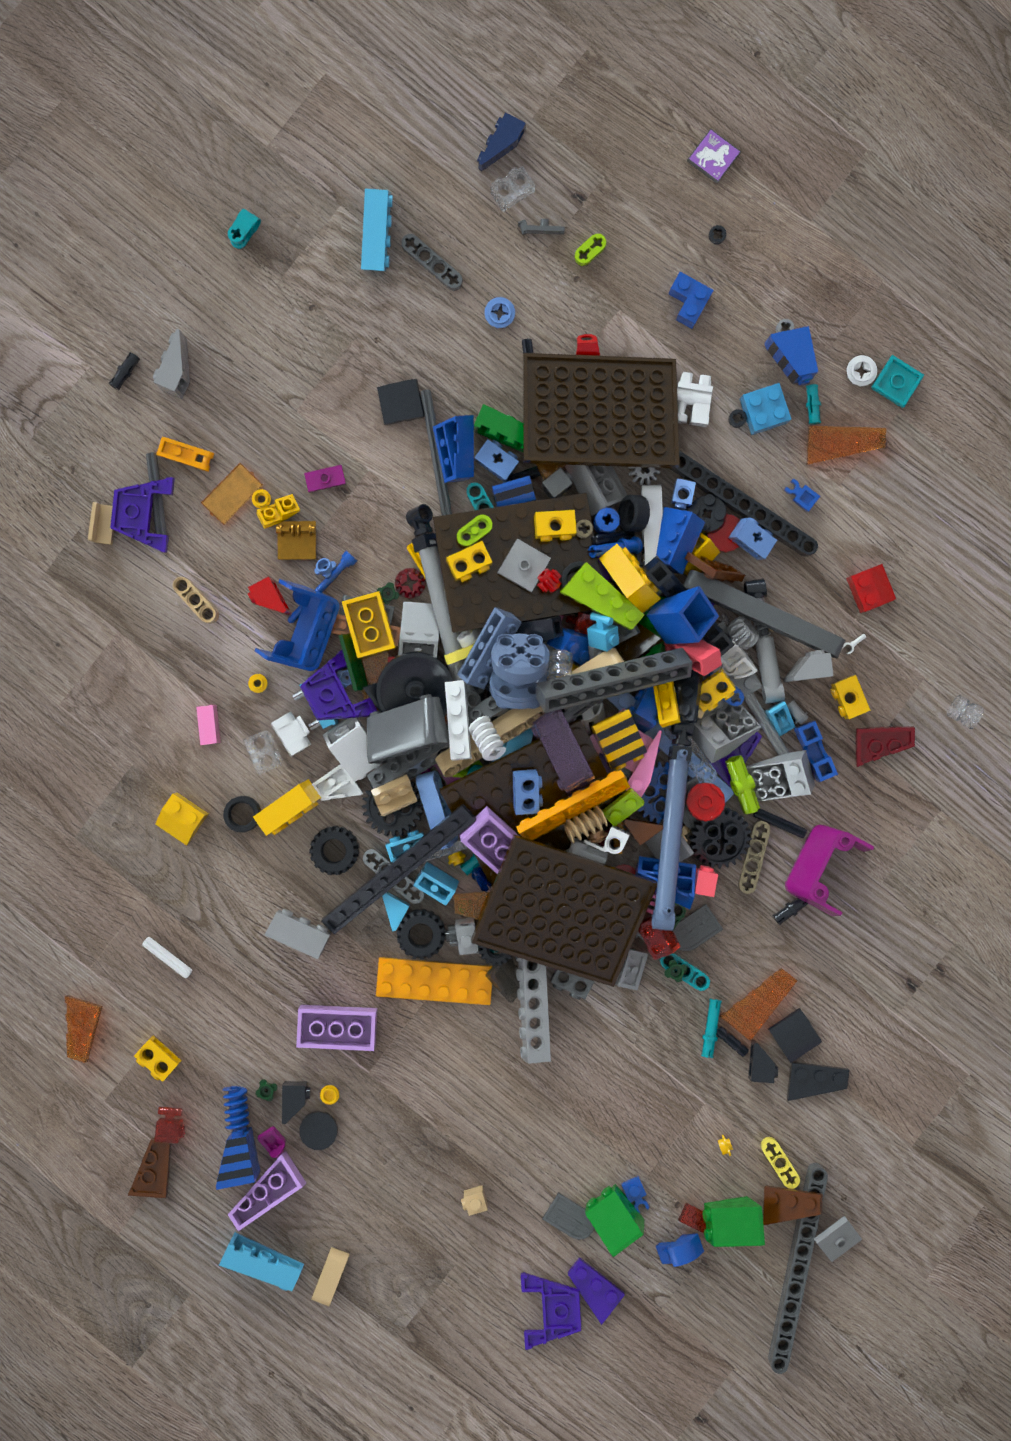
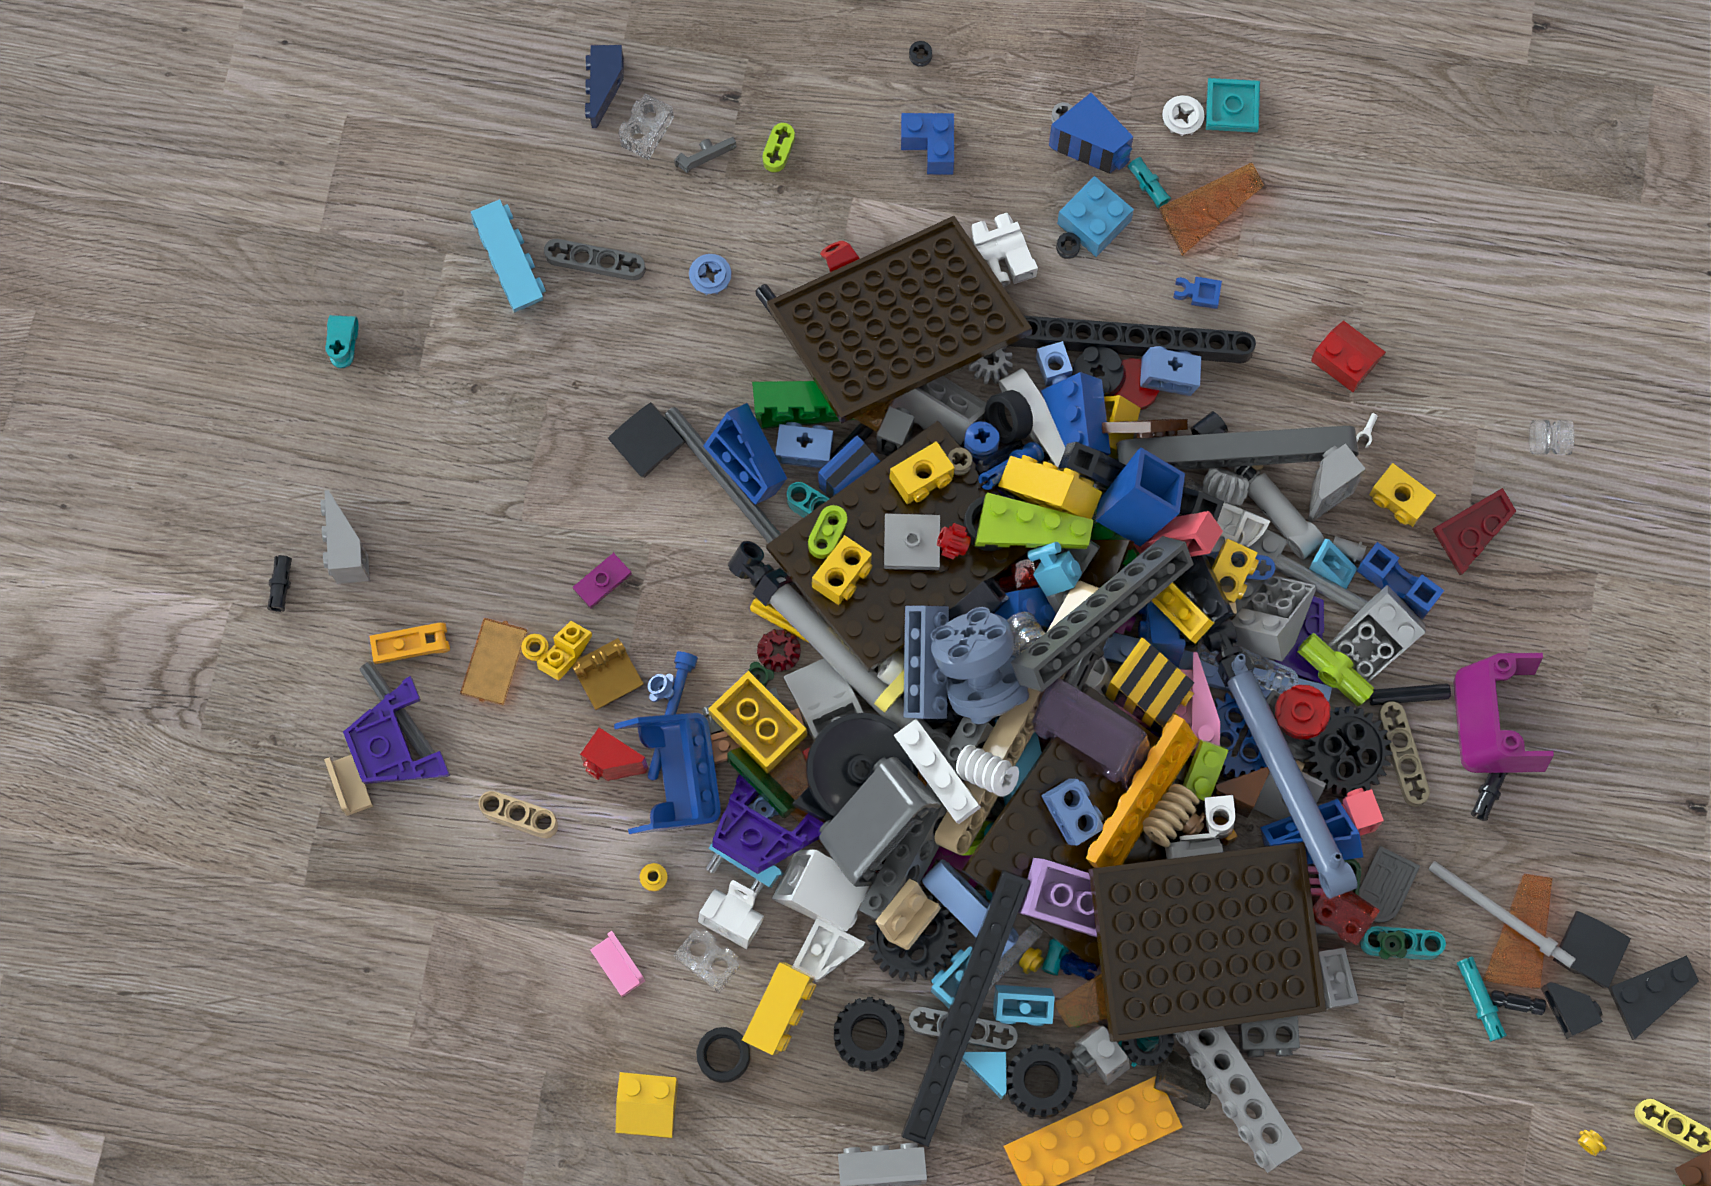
camera: 25 degrees left, 15 degrees down
(768, 1021) = (1547, 945): none -> light grey bar

